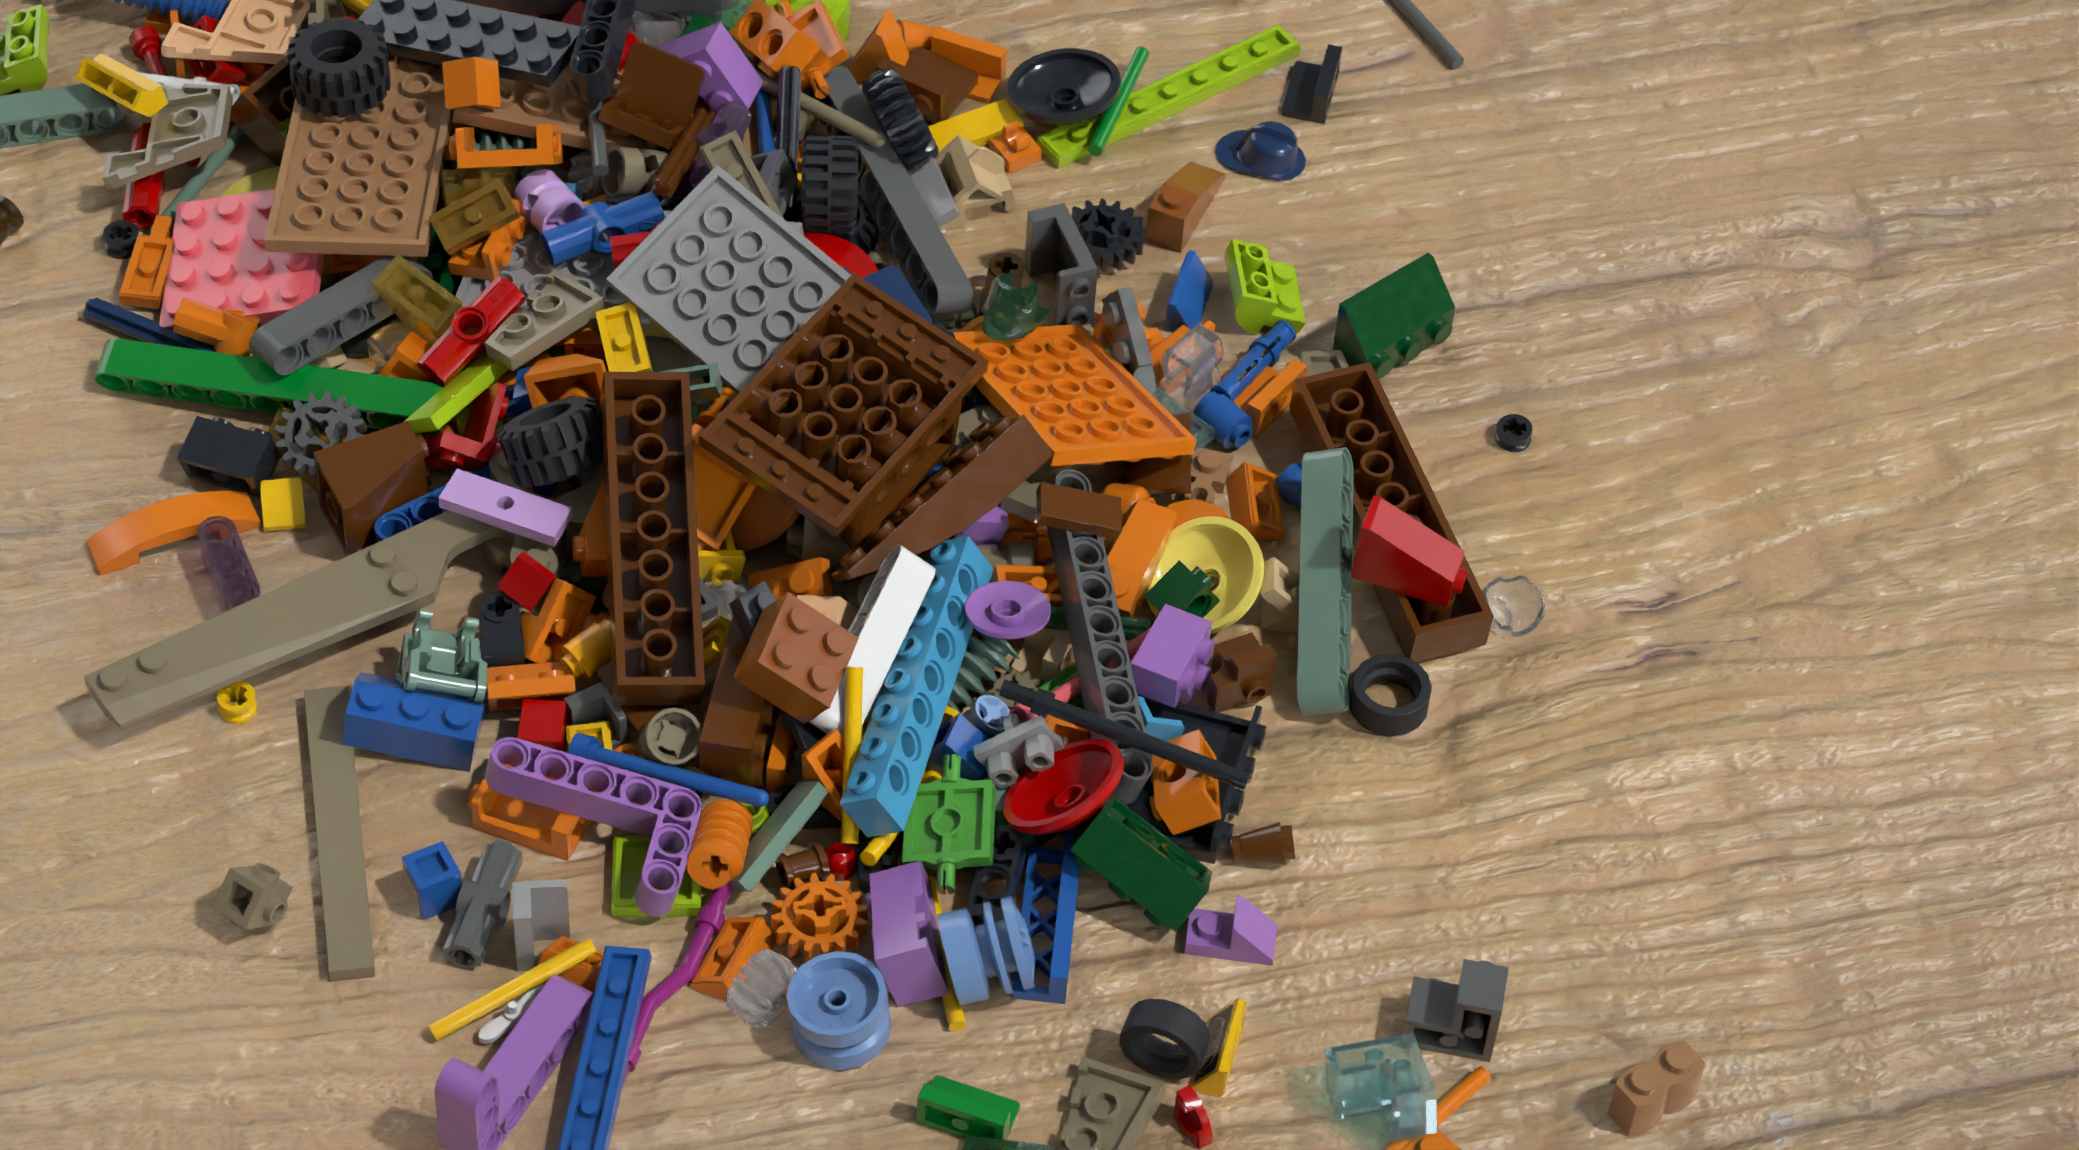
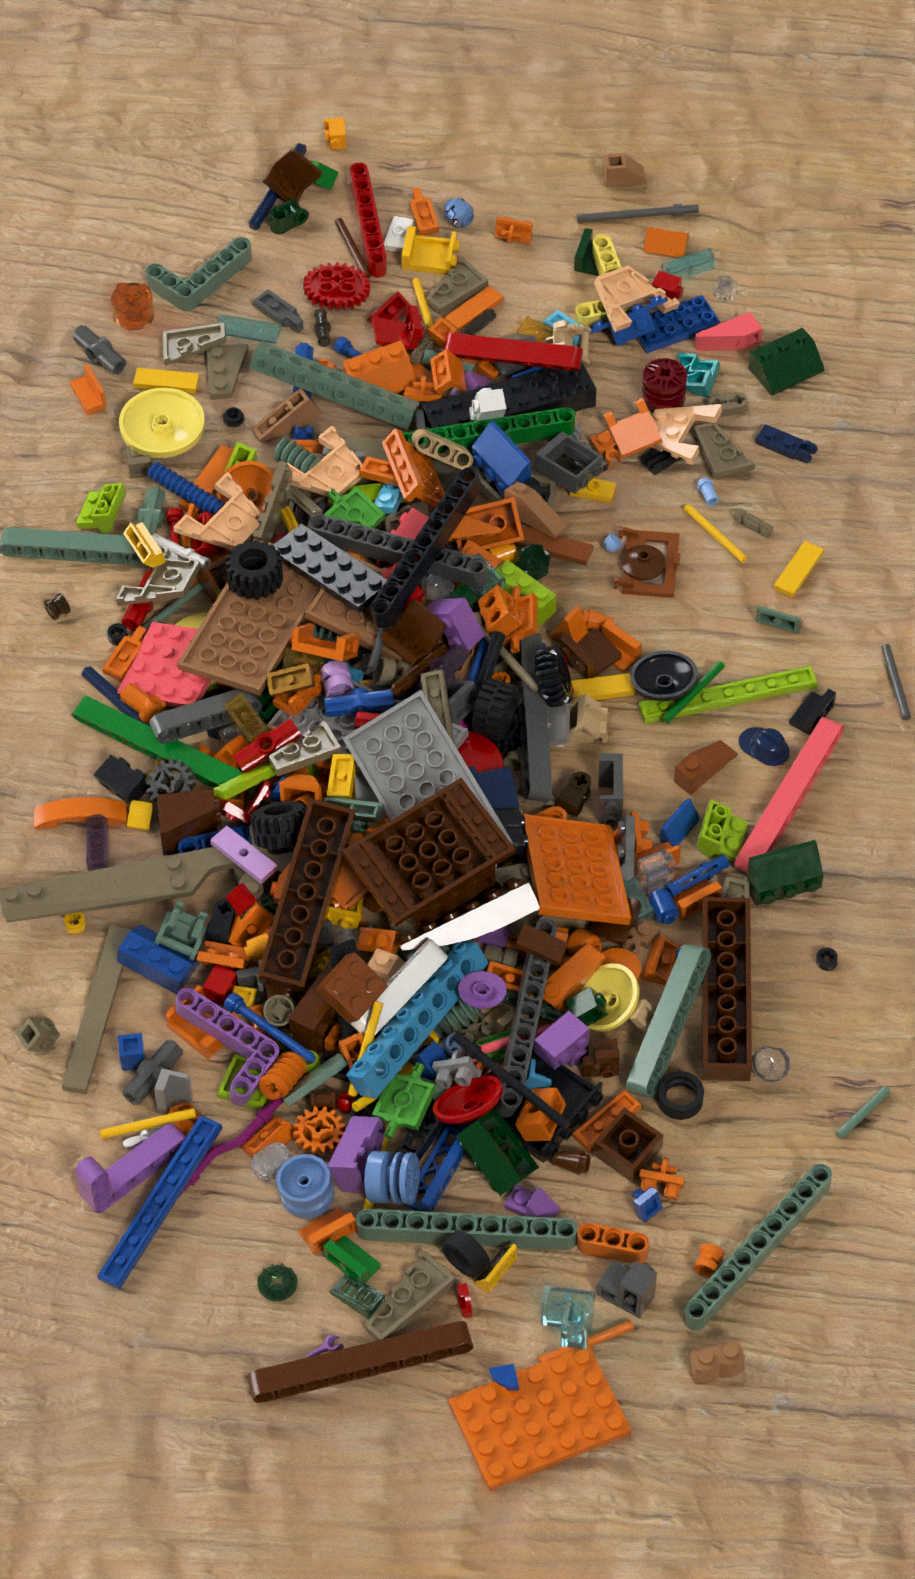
camera: 25 degrees right, 5 degrees up
(102, 32) = (151, 512): none -> sand green piece
(471, 83) = (318, 600): orange panel -> none
(900, 1074) = (331, 1226): none -> orange panel
(1011, 310) = (567, 810): clear green hair -> none
(1015, 147) = (624, 705): orange tile -> none
(1077, 1007) = (477, 1222): none -> sand green beam
(1110, 233) = (658, 770): black gear -> none
(1287, 768) = (594, 1127): none -> orange tile
(1339, 211) = (791, 791): none -> coral beam
(1348, 790) = (628, 1144): none -> reddish brown brick
(1375, 948) = (604, 1234): none -> orange beam
(1406, 834) = (672, 1182): none -> orange hips
(1407, 556) = (711, 1021): red slope -> none
(1417, 874) = (646, 1203): none -> blue tile
(1562, 939) = (709, 1259): none -> orange wheel
(1628, 893) = (756, 1256): none -> sand green beam
(1684, 643) = (863, 1112): none -> sand green bar

